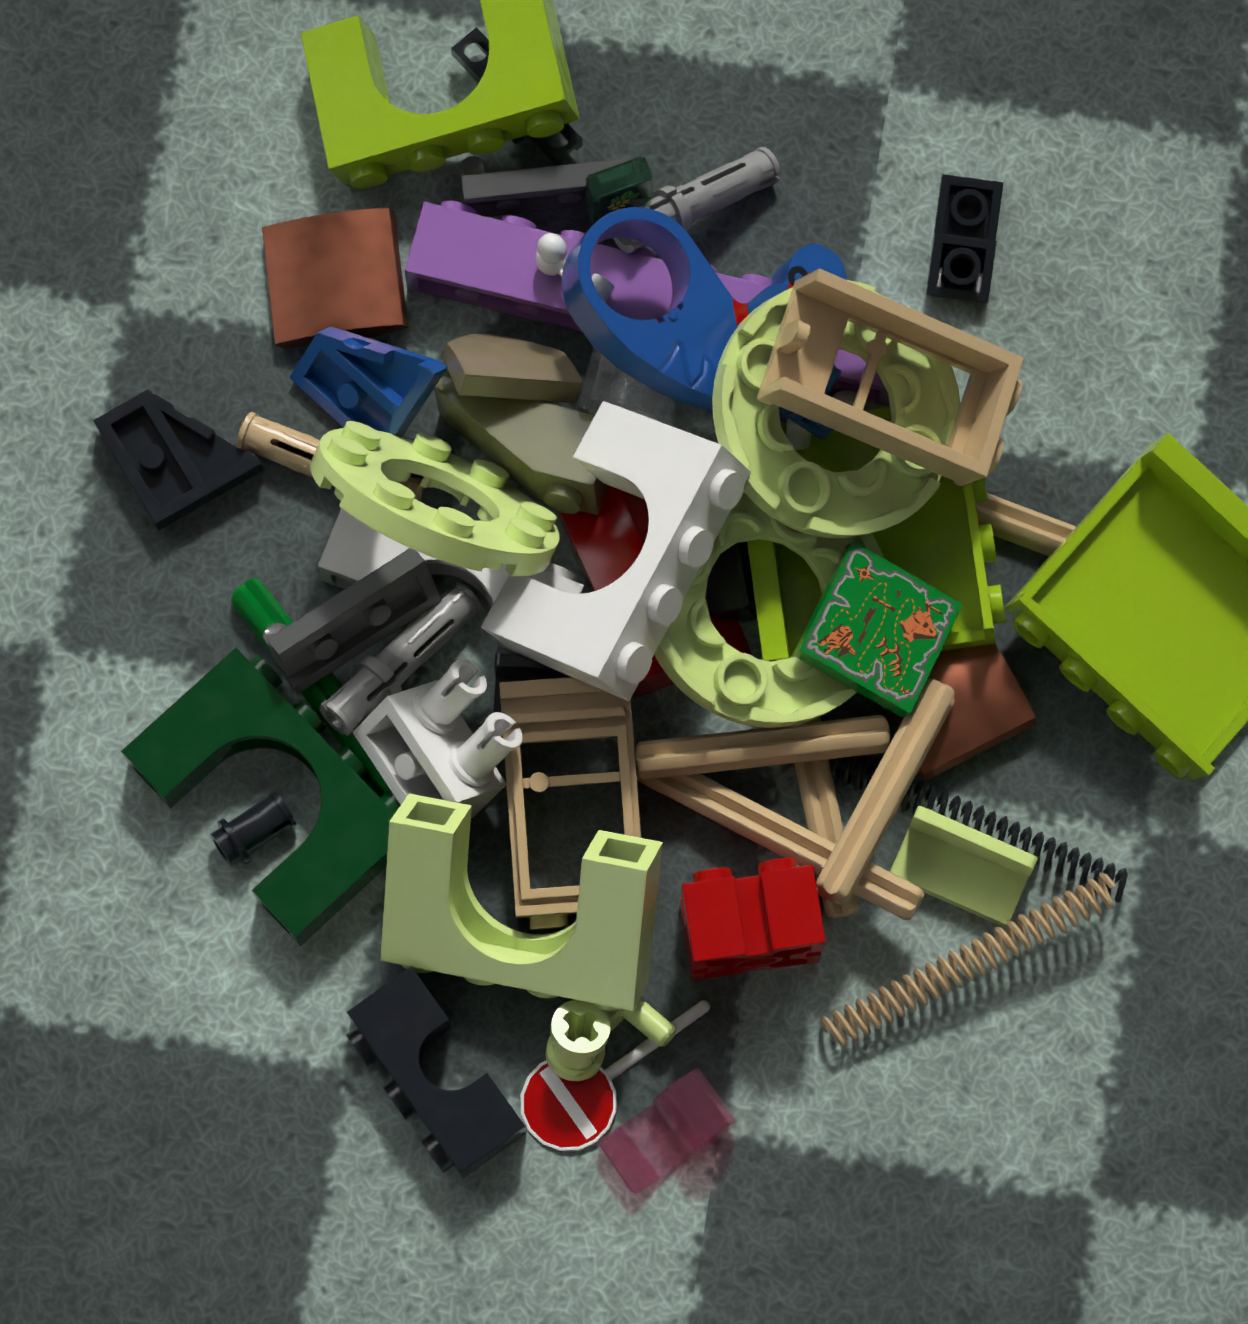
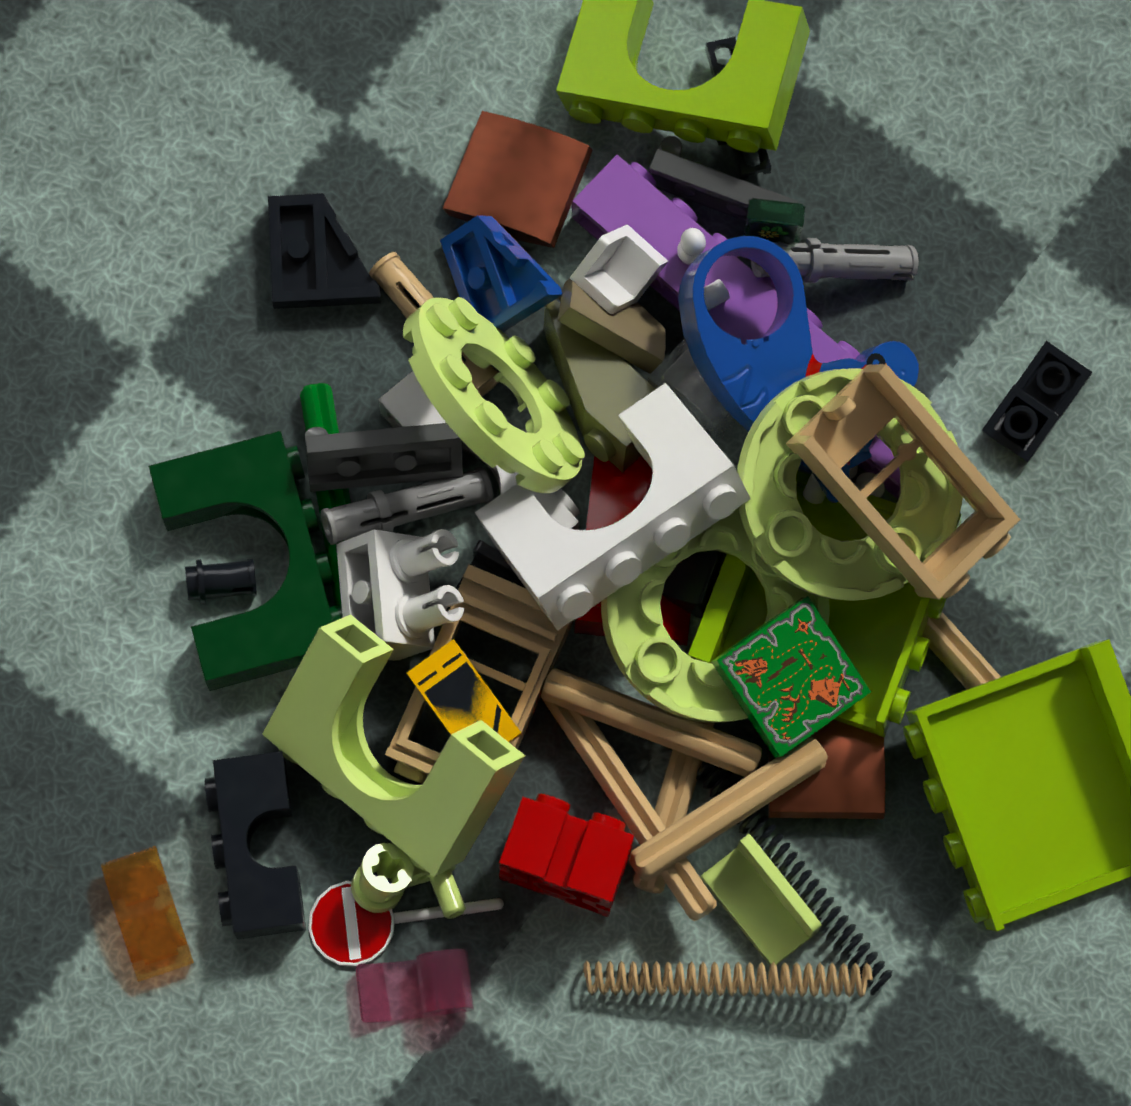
camera: 25 degrees right, 0 degrees up
(359, 1200) = (147, 913): none -> clear orange slope
(490, 314) = (618, 269): none -> white panel
(560, 815) = (460, 693): none -> tile

